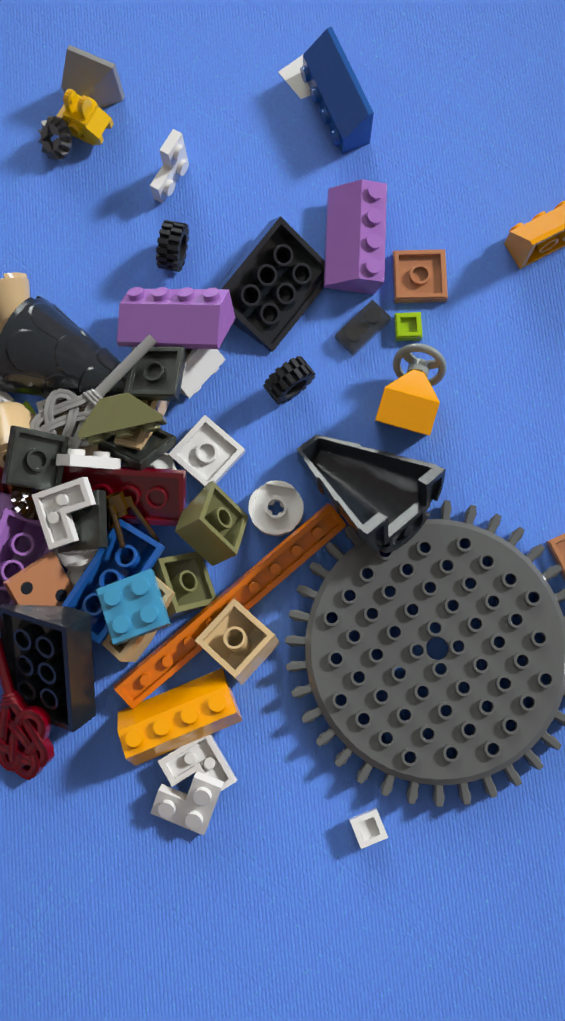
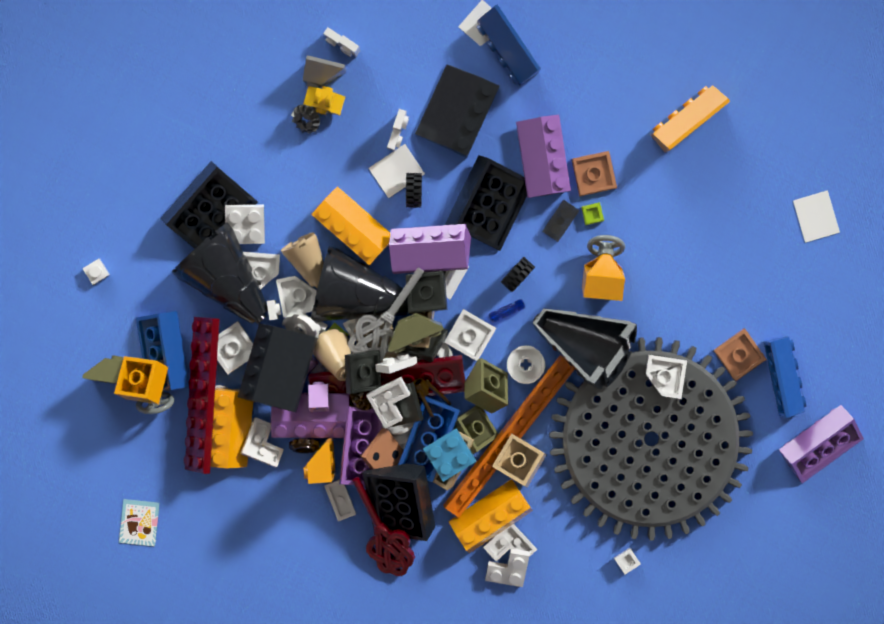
camera: 10 degrees left, 10 degrees up
(79, 279) = (352, 225): none -> light orange slope
(127, 54) = (347, 46): none -> white plate
(146, 224) = (392, 170): none -> white sticker
(256, 165) = (457, 110): none -> black slope
(265, 430) = (506, 310): none -> clear blue axle
(476, 556) = (666, 375): none -> white plate

